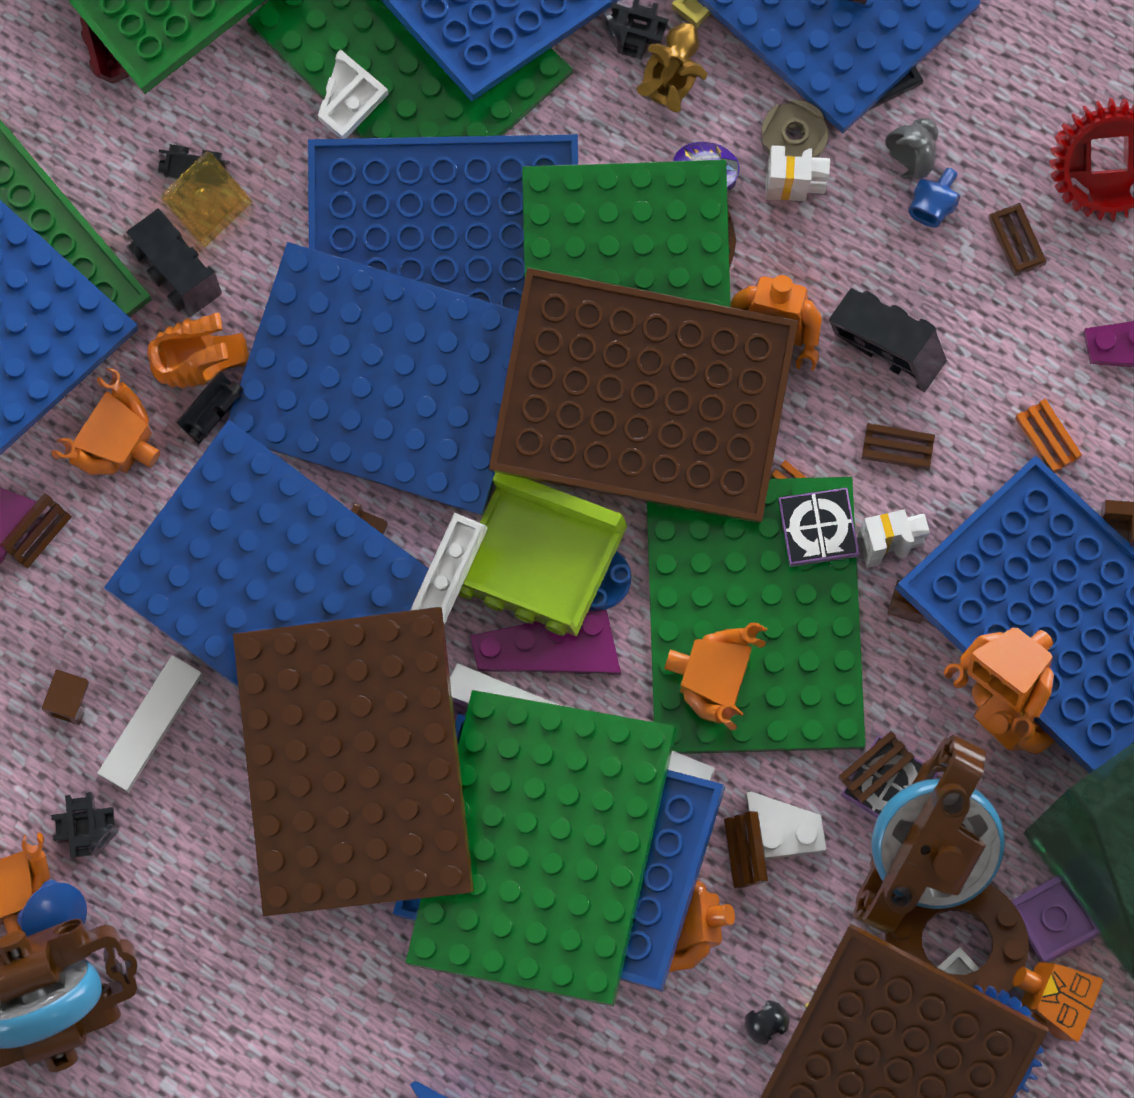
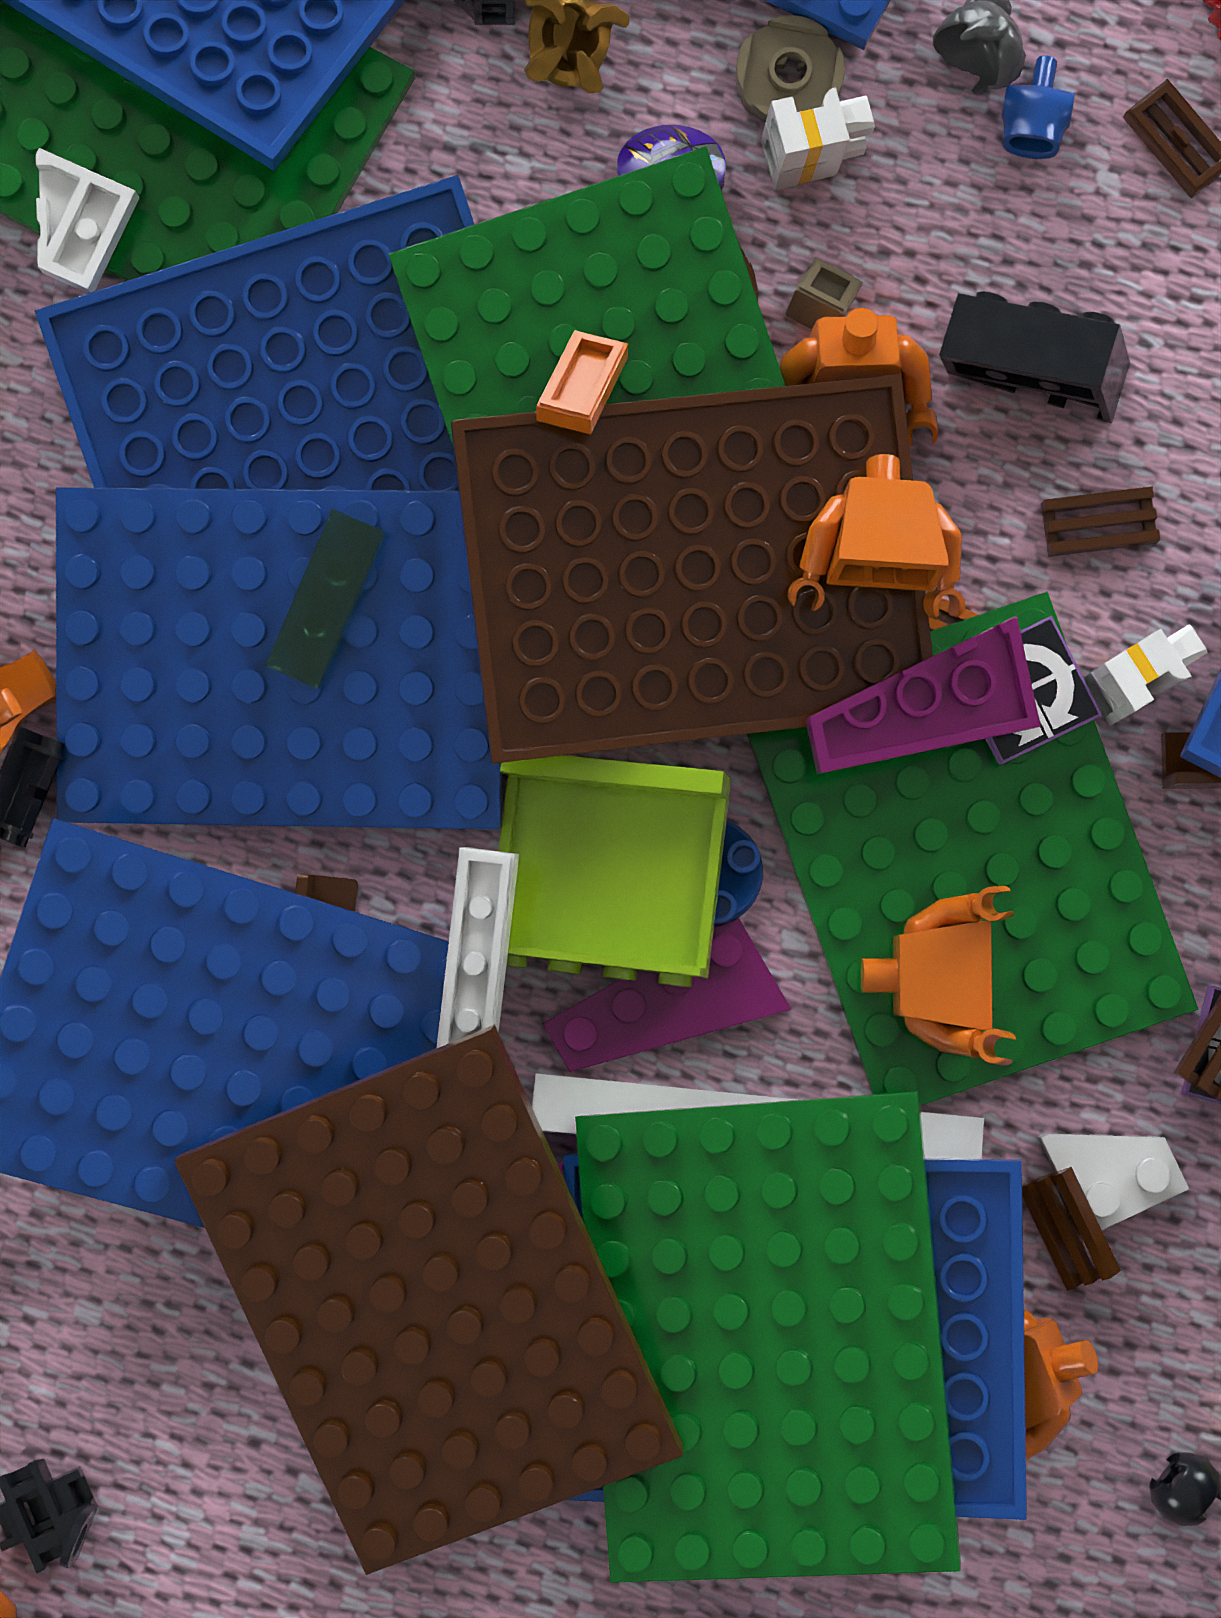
camera: 20 degrees left, 10 degrees up
(150, 723) = (92, 1317): white tile -> none
(423, 348) = (326, 599): none -> tile
(609, 269) = (582, 382): none -> tile
(756, 407) = (884, 537): none -> orange torso
(766, 514) = (942, 702): none -> magenta wing
(773, 263) = (822, 294): none -> dark tan slope

